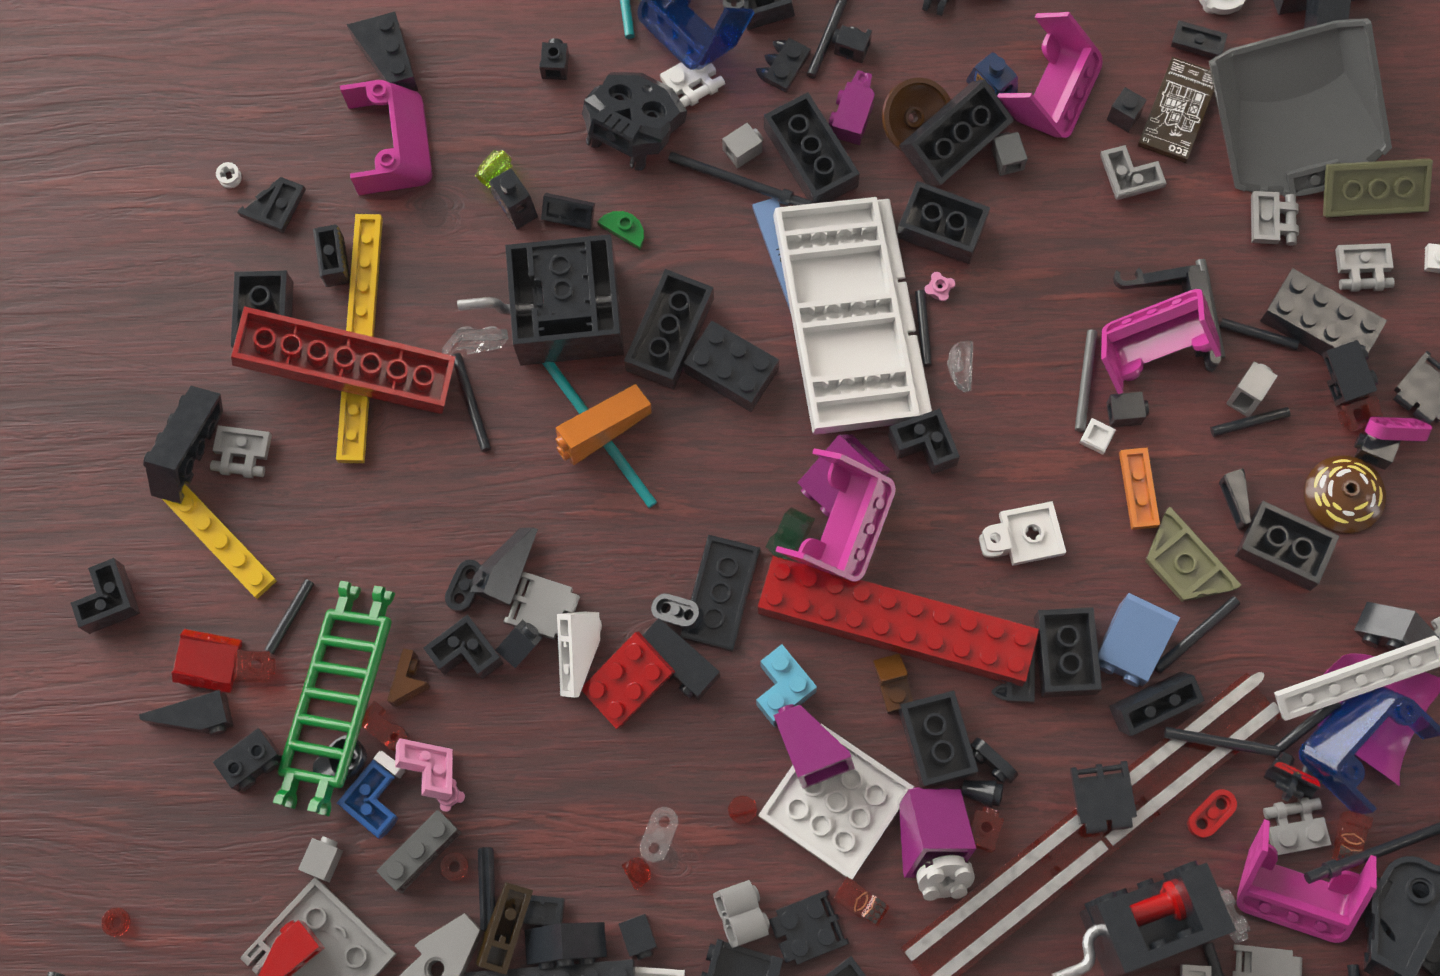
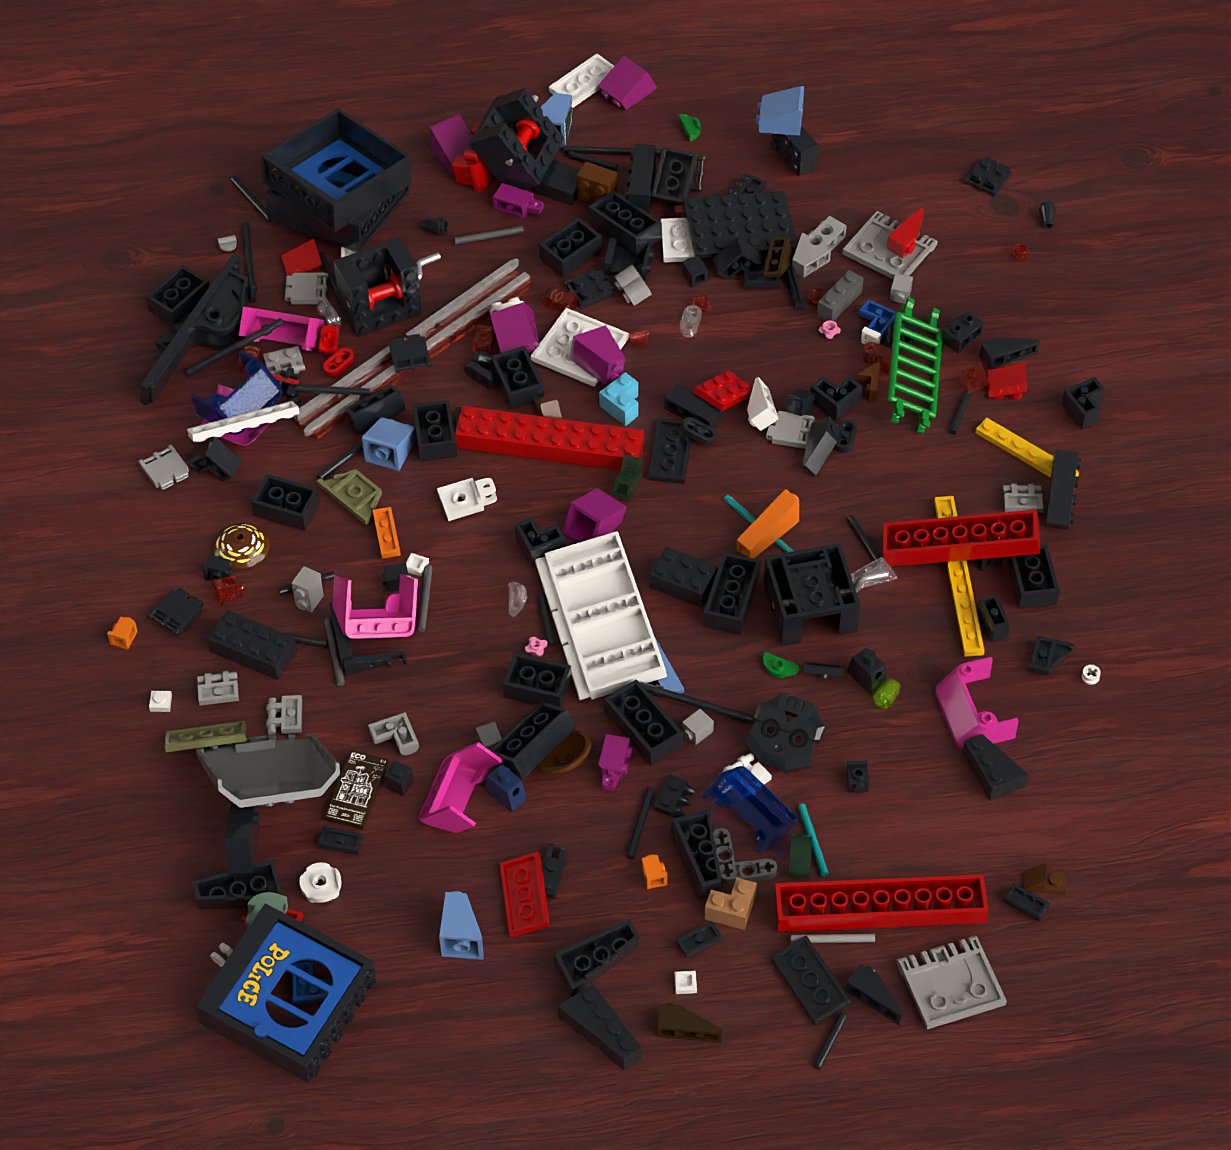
camera: 170 degrees right, 20 degrees down
(432, 761) = (844, 338): bright pink plate -> none
(852, 43) = (620, 810): black brick -> none
(853, 522) = (588, 464): dark pink windscreen -> none
(1229, 856) = (329, 339): none -> red hips
(1235, 493) = (320, 537): slope -> none
(1349, 372) = (237, 595): black brick -> none
(1398, 429) = (211, 575): dark pink beam -> none

